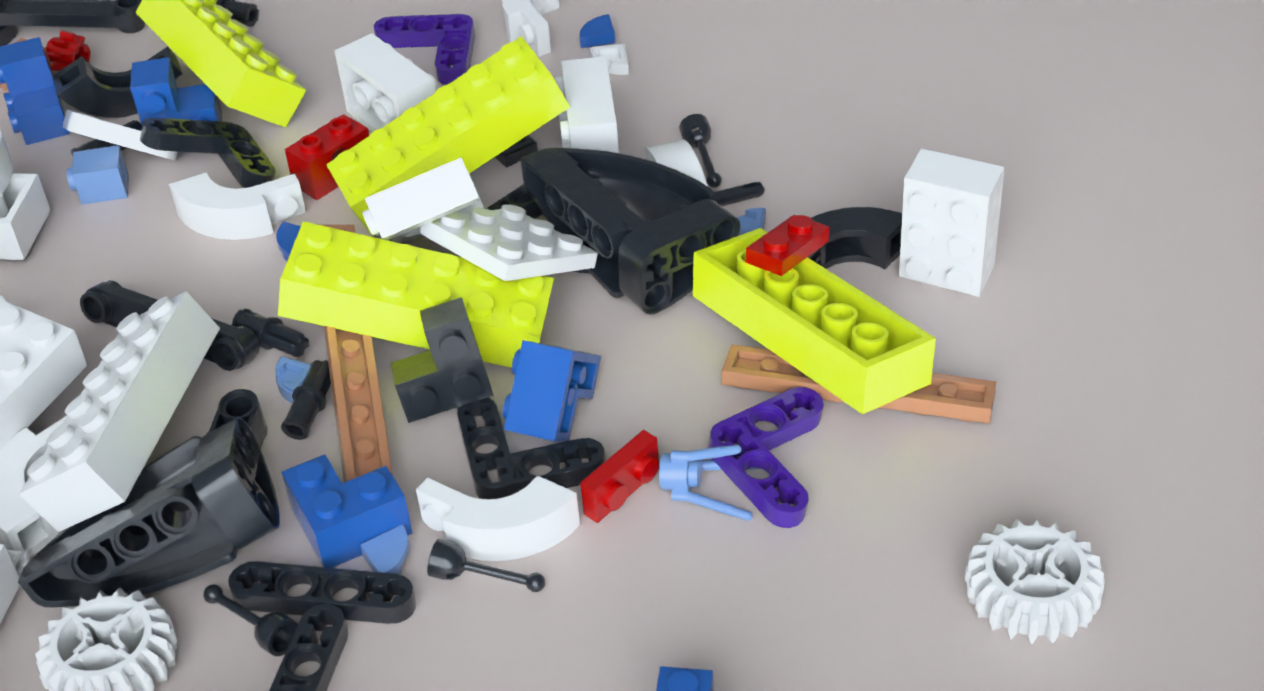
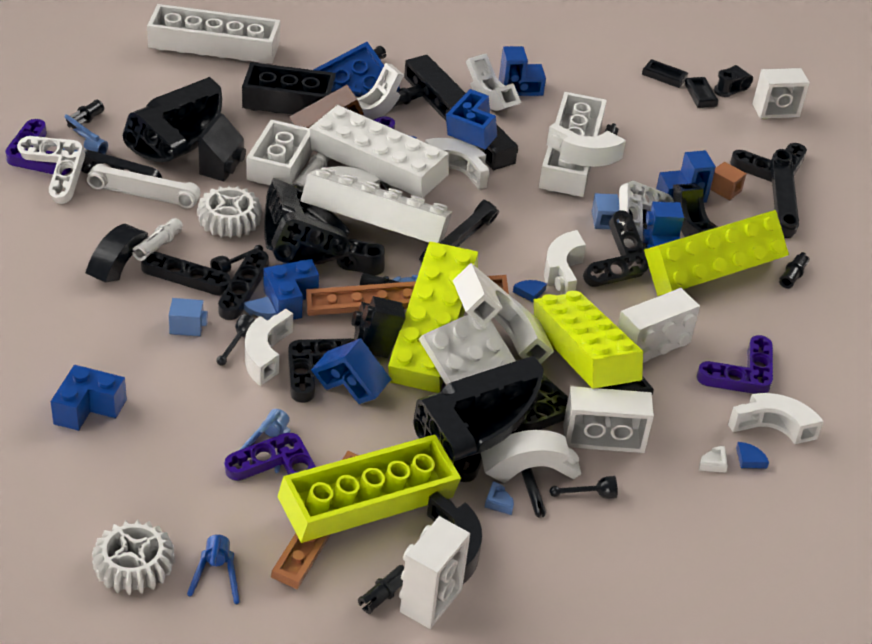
camera: 90 degrees right, 0 degrees up
(66, 50) = (738, 197): red gear -> none
(313, 151) = (605, 297): red brick -> none
(440, 646) = (187, 317): none -> medium blue brick
(620, 476) = (278, 396): red plate -> none
(787, 244) = (428, 478): red plate -> none
(960, 302) = (382, 590): none -> black axle
(977, 483) = (216, 554): none -> blue plant

